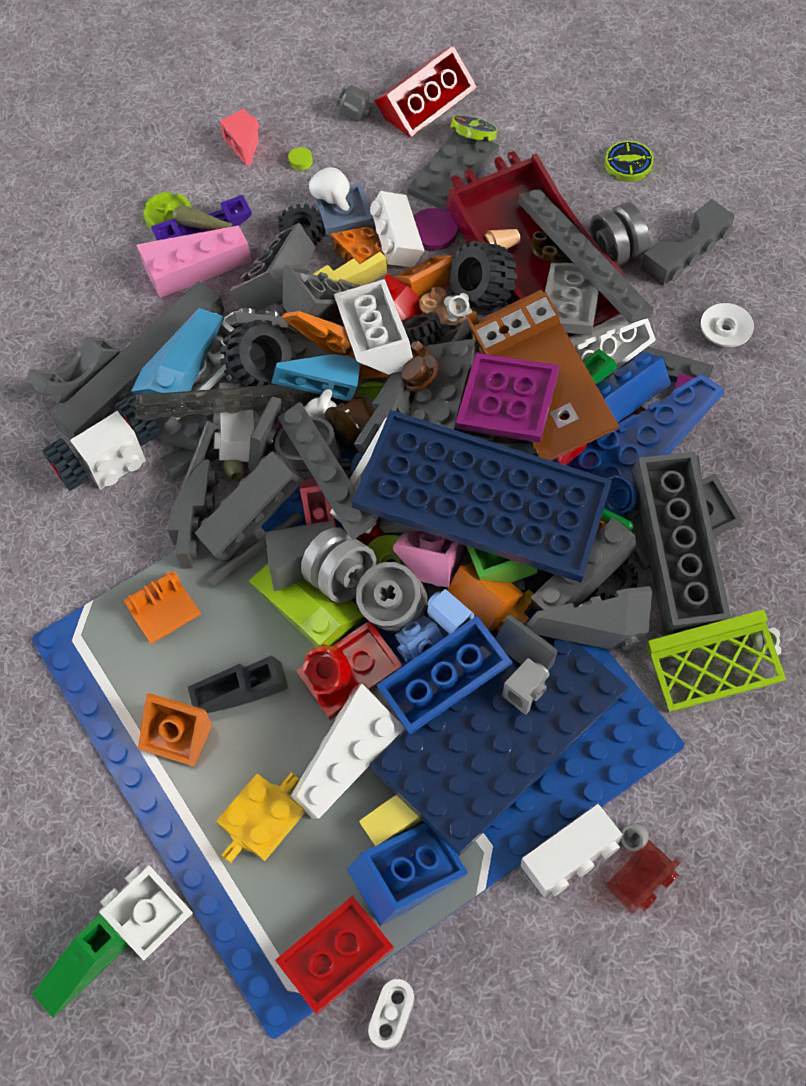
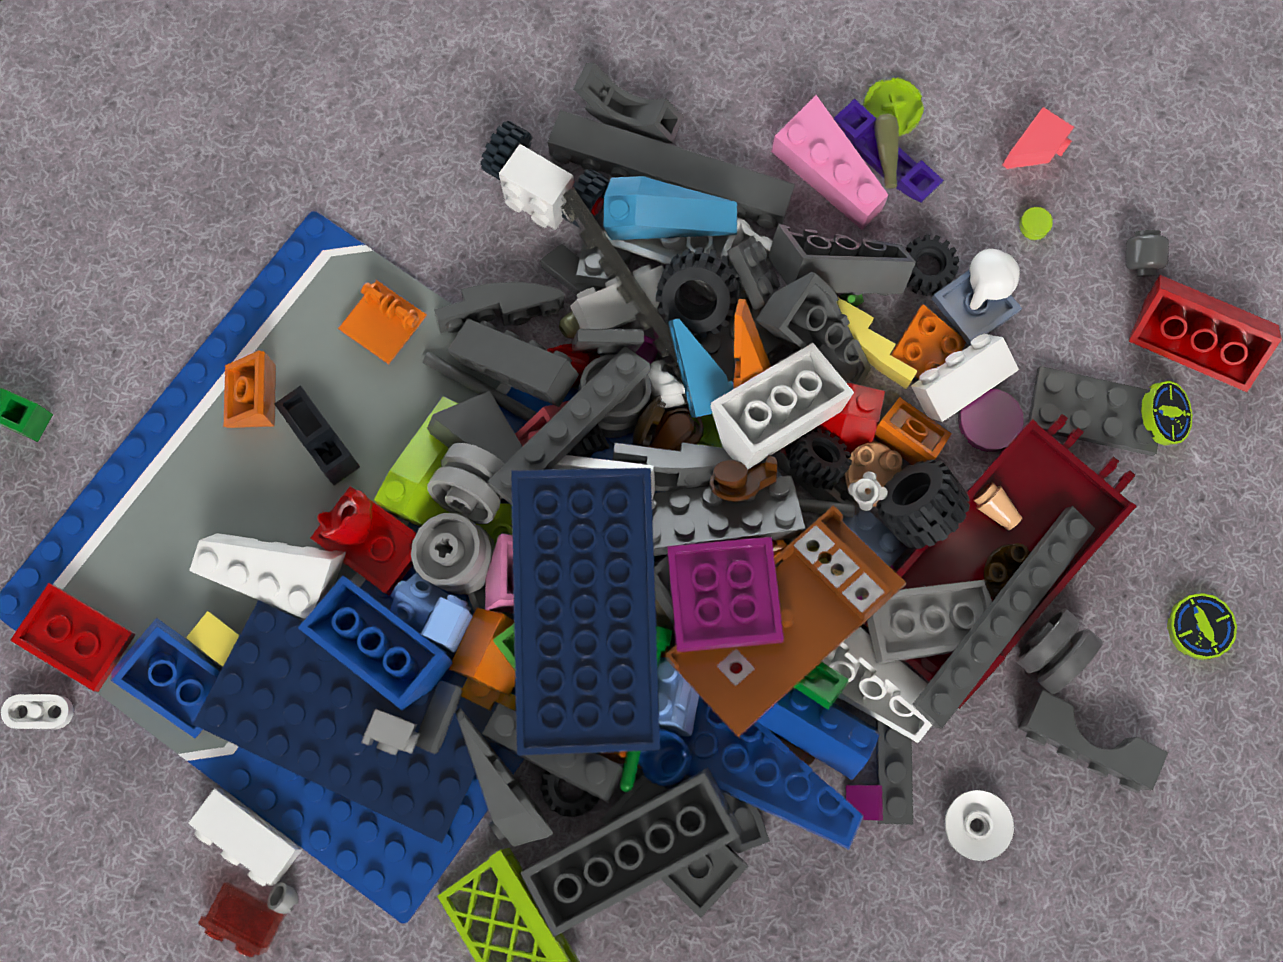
camera: 65 degrees right, 15 degrees up
(144, 910) = (66, 441): white plate -> none
(201, 448) = (571, 282): dark grey bar -> none
(260, 817) = (188, 511): yellow plate -> none

